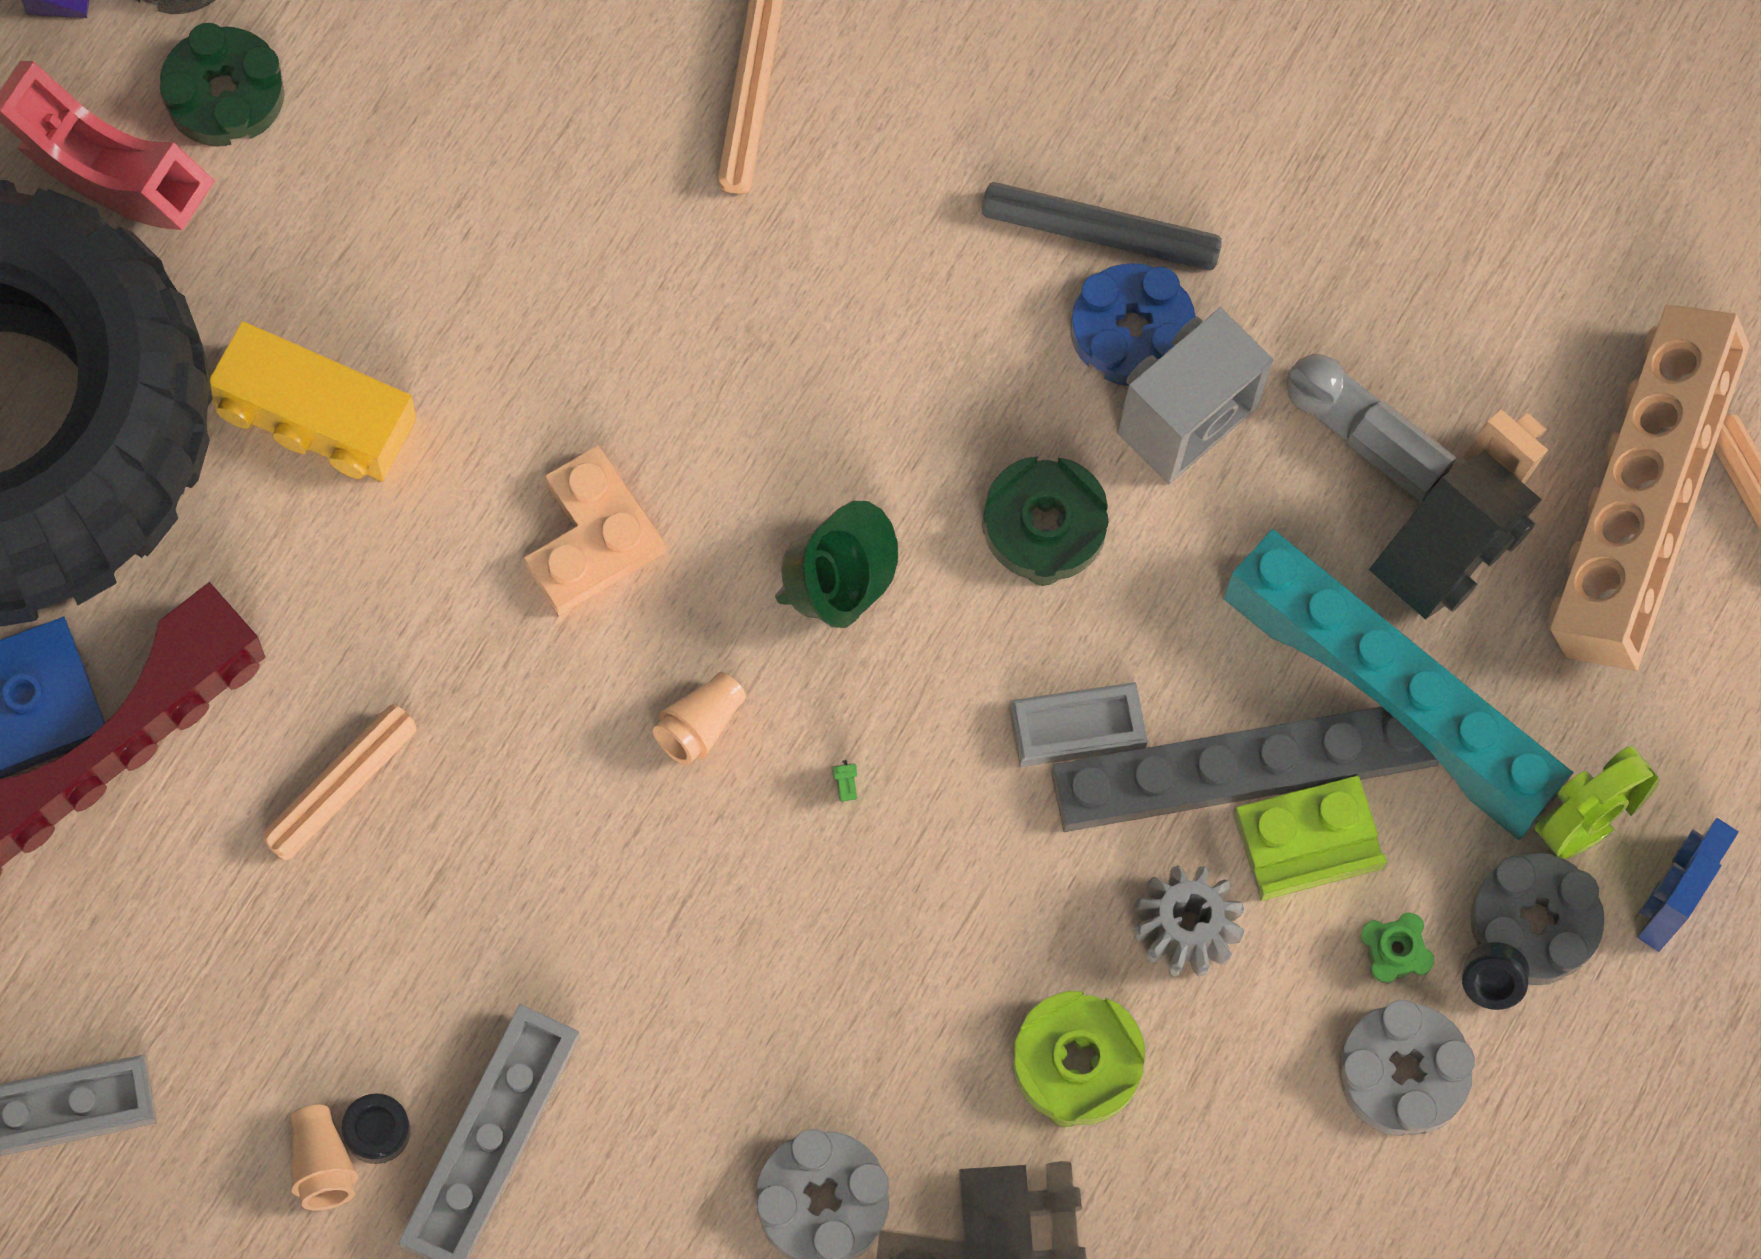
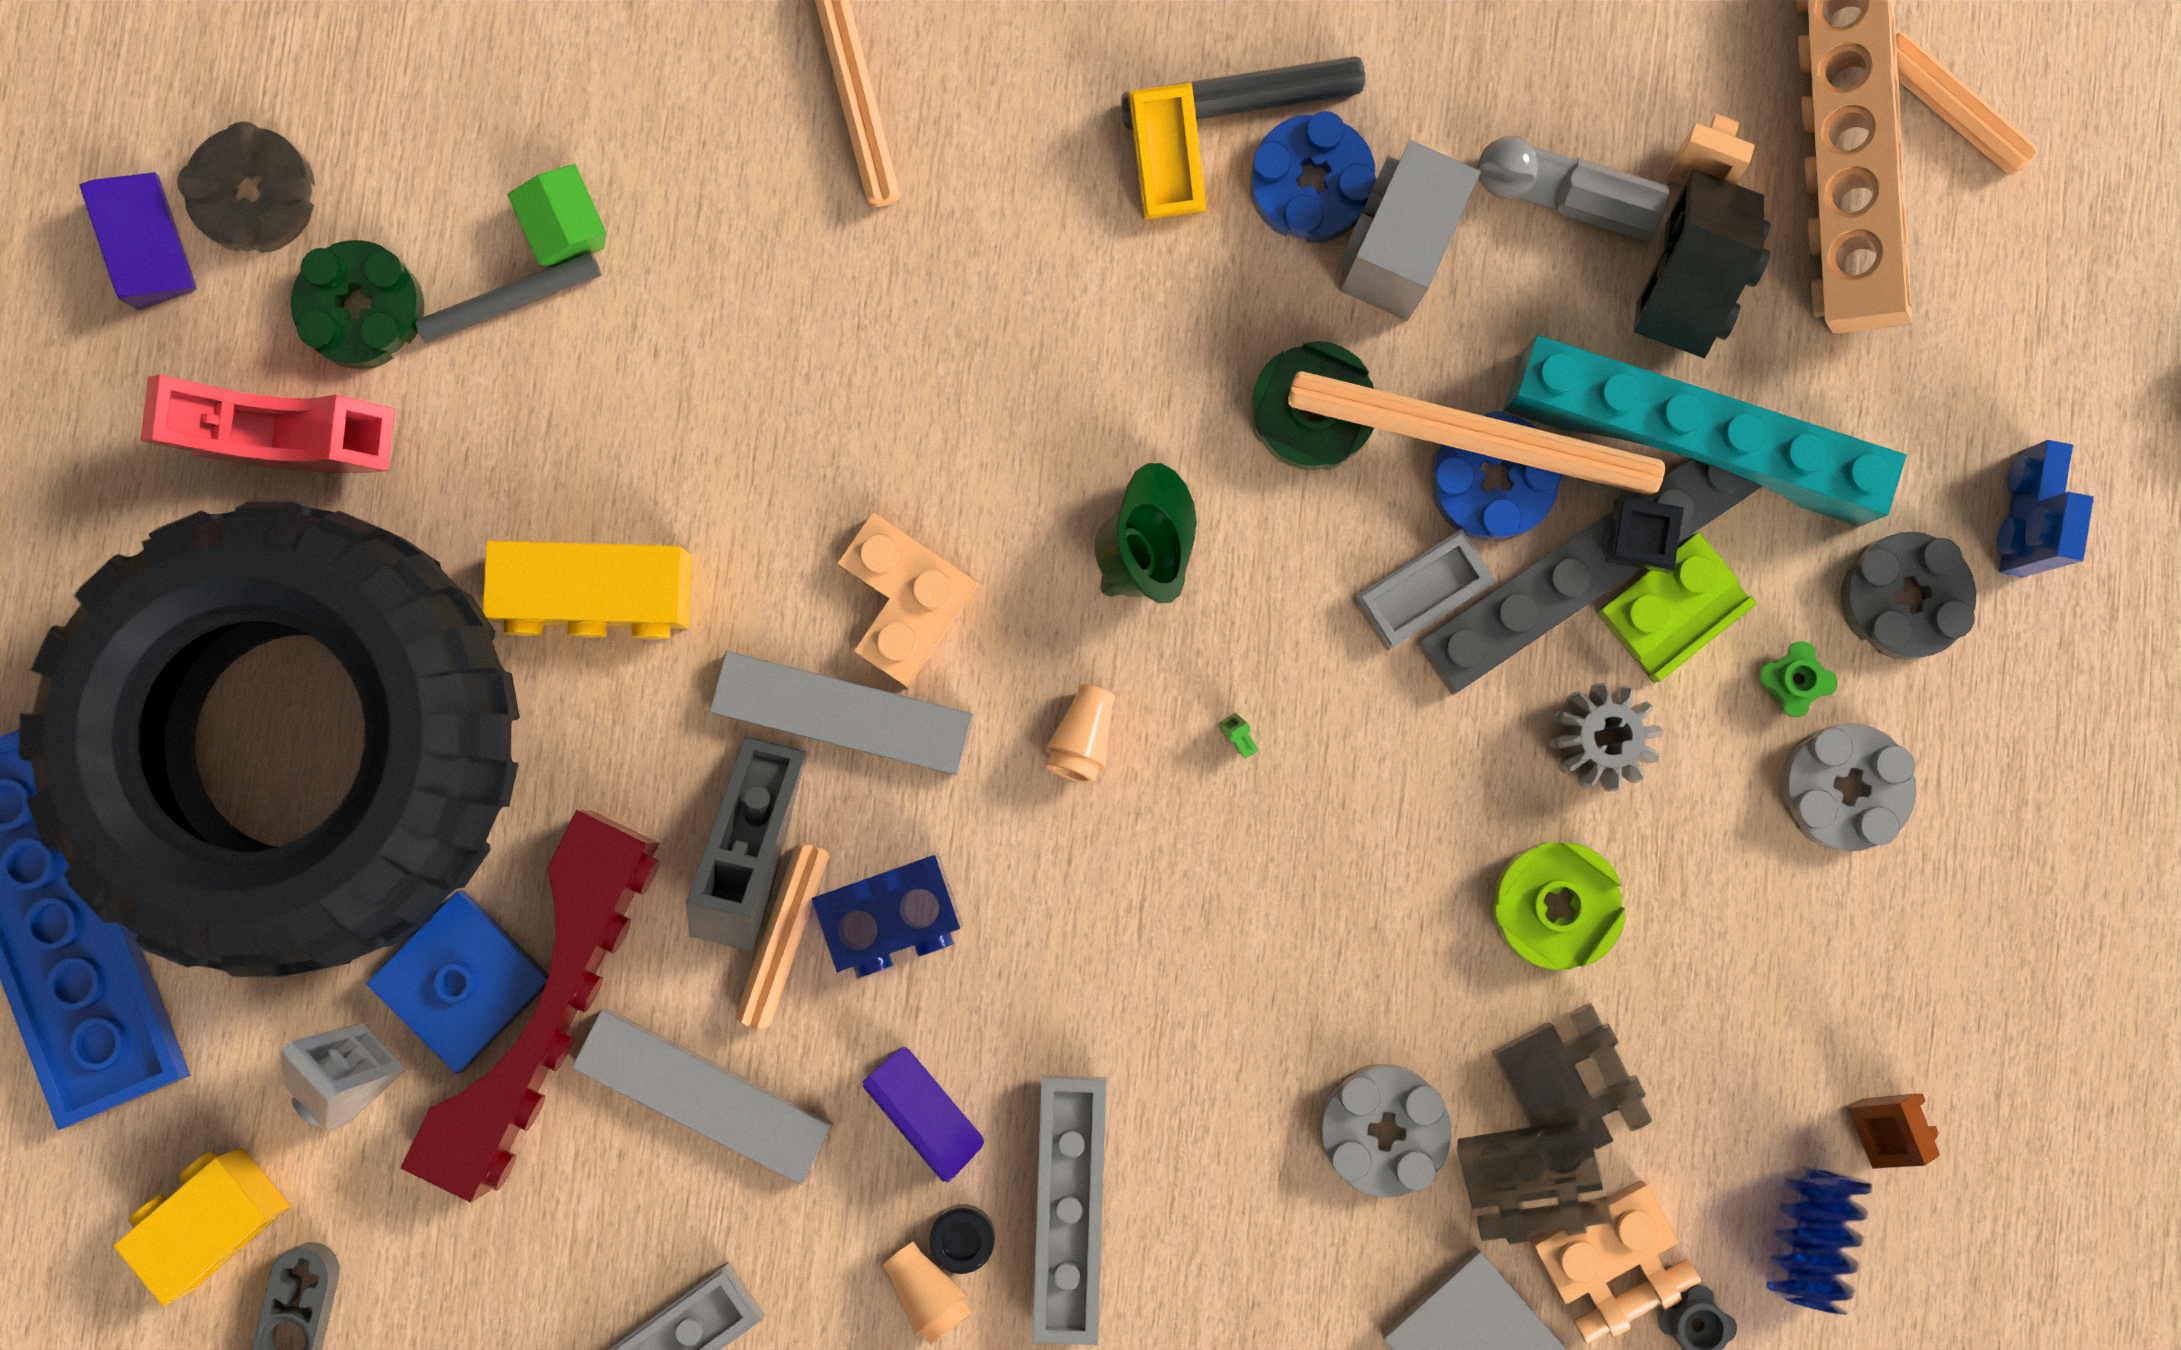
camera: 20 degrees left, 15 degrees up
(198, 895) = (702, 1095): none -> light grey tile
(342, 686) = (745, 845): none -> dark grey slope
(358, 134) = (508, 297): none -> dark grey piece
(395, 994) = (924, 1113): none -> dark purple slope
(436, 83) = (558, 216): none -> bright green piece
(450, 781) = (884, 900): none -> clear blue brick
(488, 610) = (841, 713): none -> light grey tile
(1008, 245) = (1167, 150): none -> yellow tile
(1182, 596) = (1476, 433): none -> light nougat axle
(1201, 618) = (1493, 513): none -> blue plate
(1301, 749) = (1644, 534): none -> black tile
(1495, 975) = (1898, 669): black tile -> none
(1596, 802) = (1935, 470): lime plate -> none

